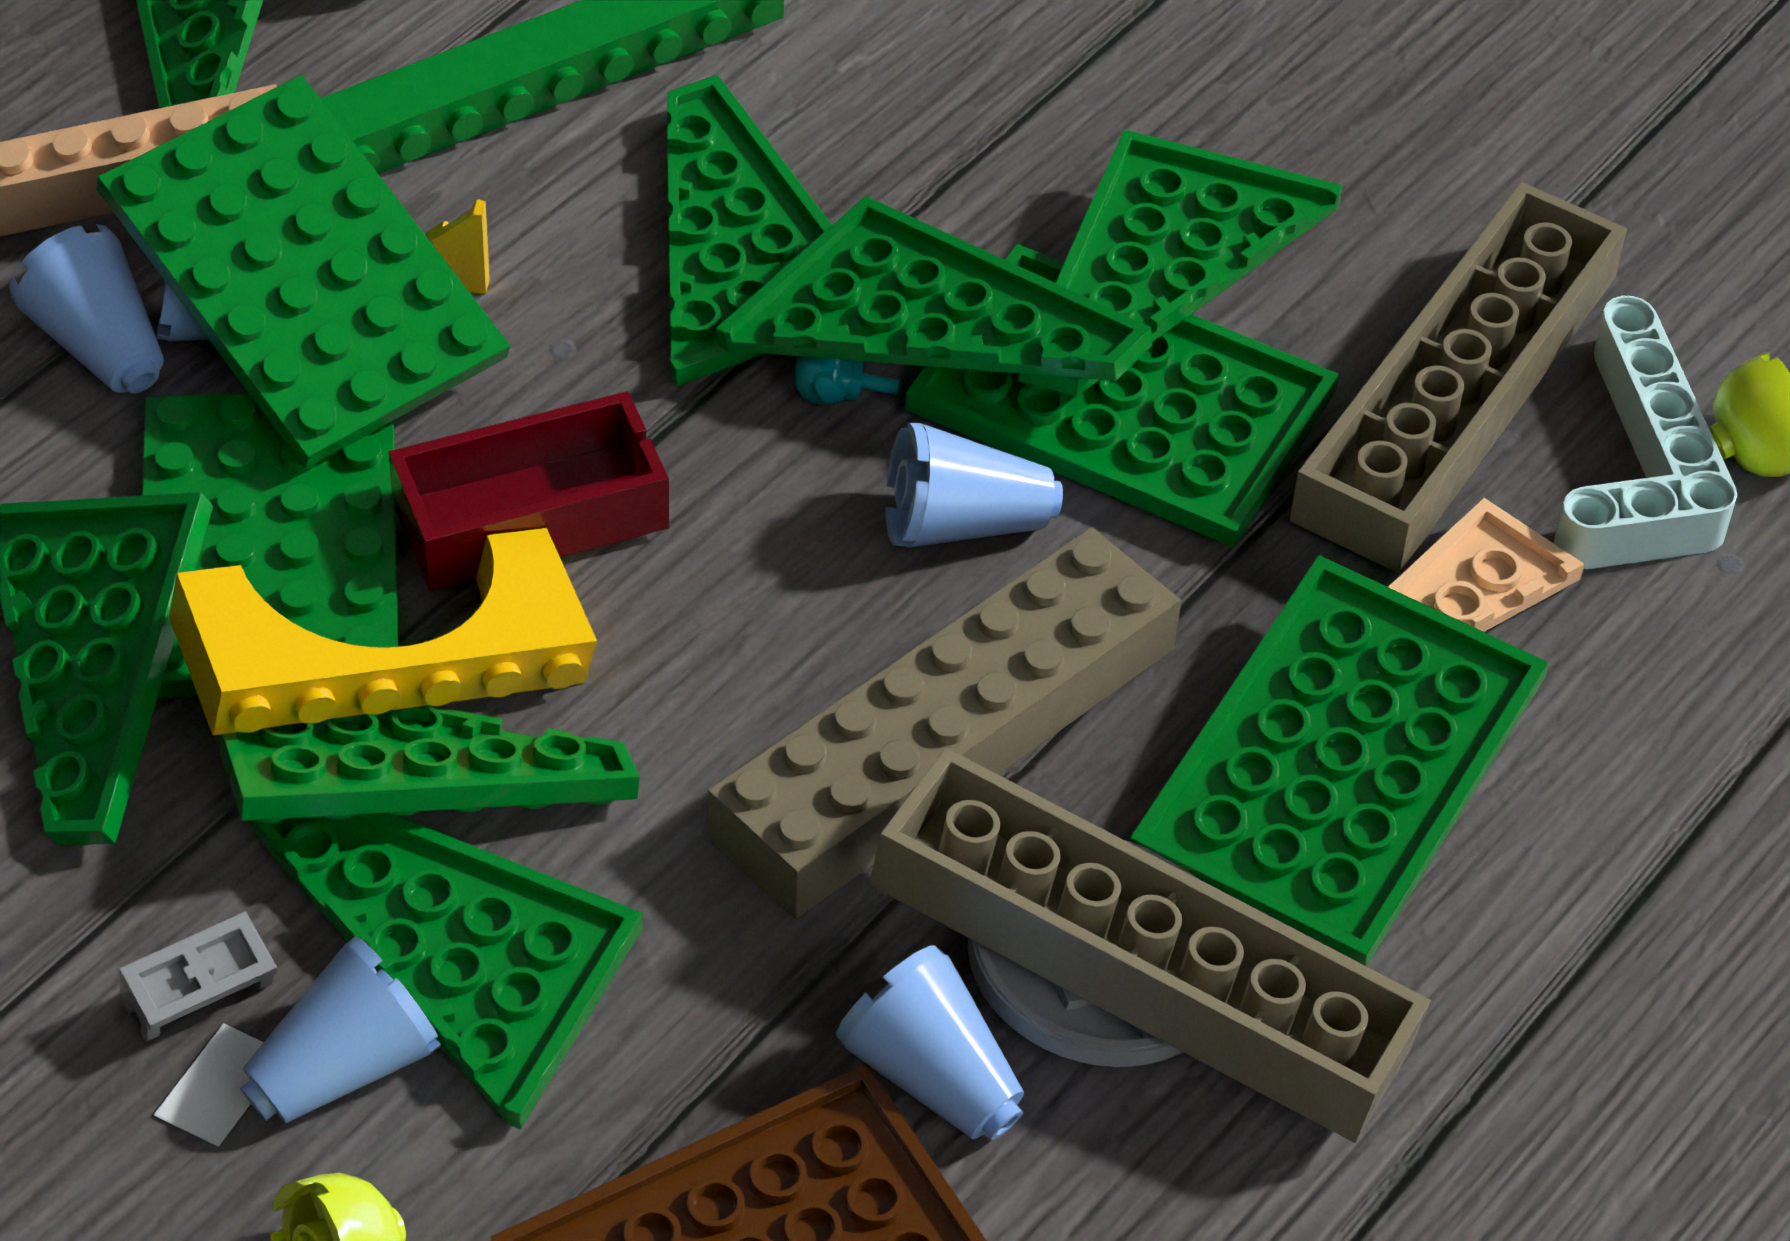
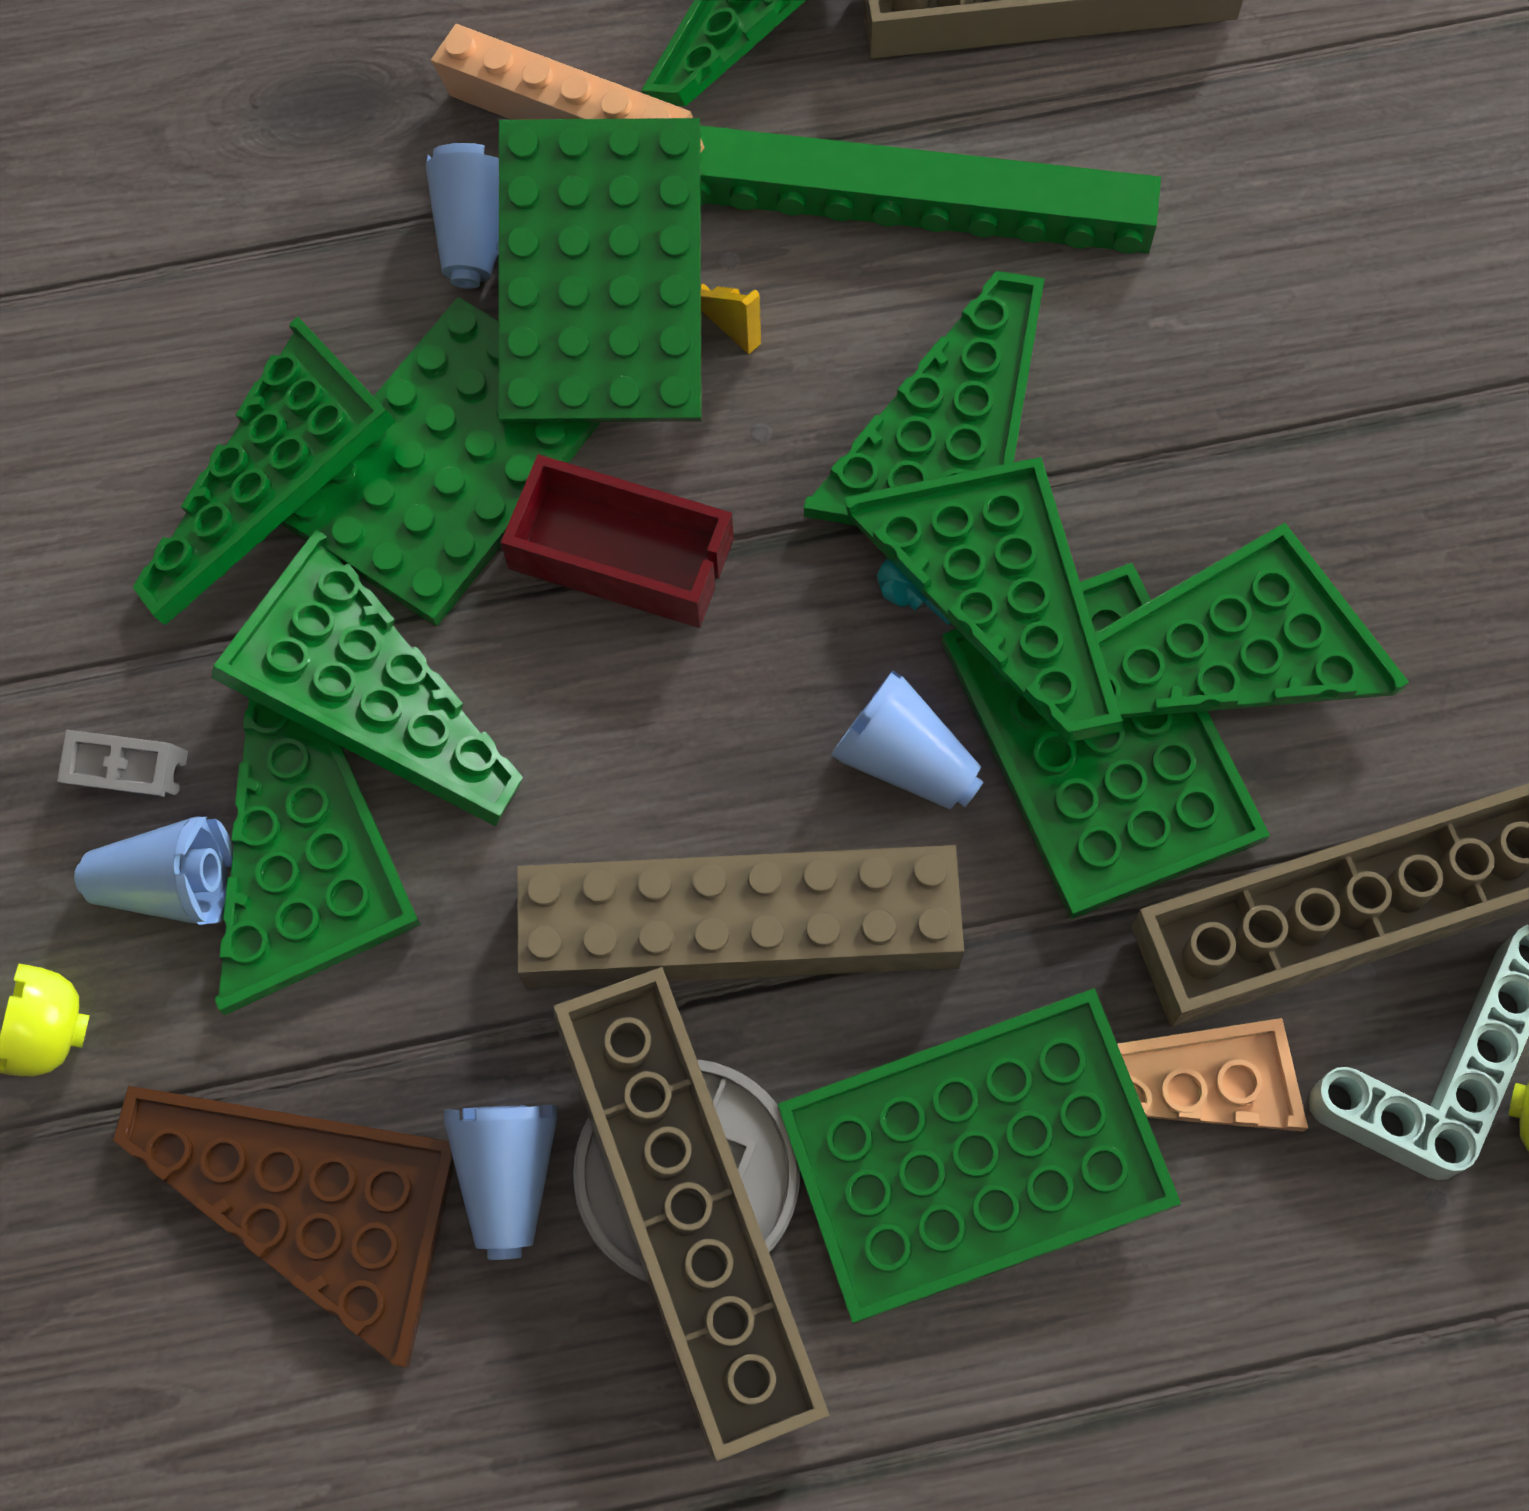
camera: 45 degrees right, 20 degrees up
(209, 1093) = (69, 843): white sticker -> none
(268, 672) = (313, 576): yellow arch -> none

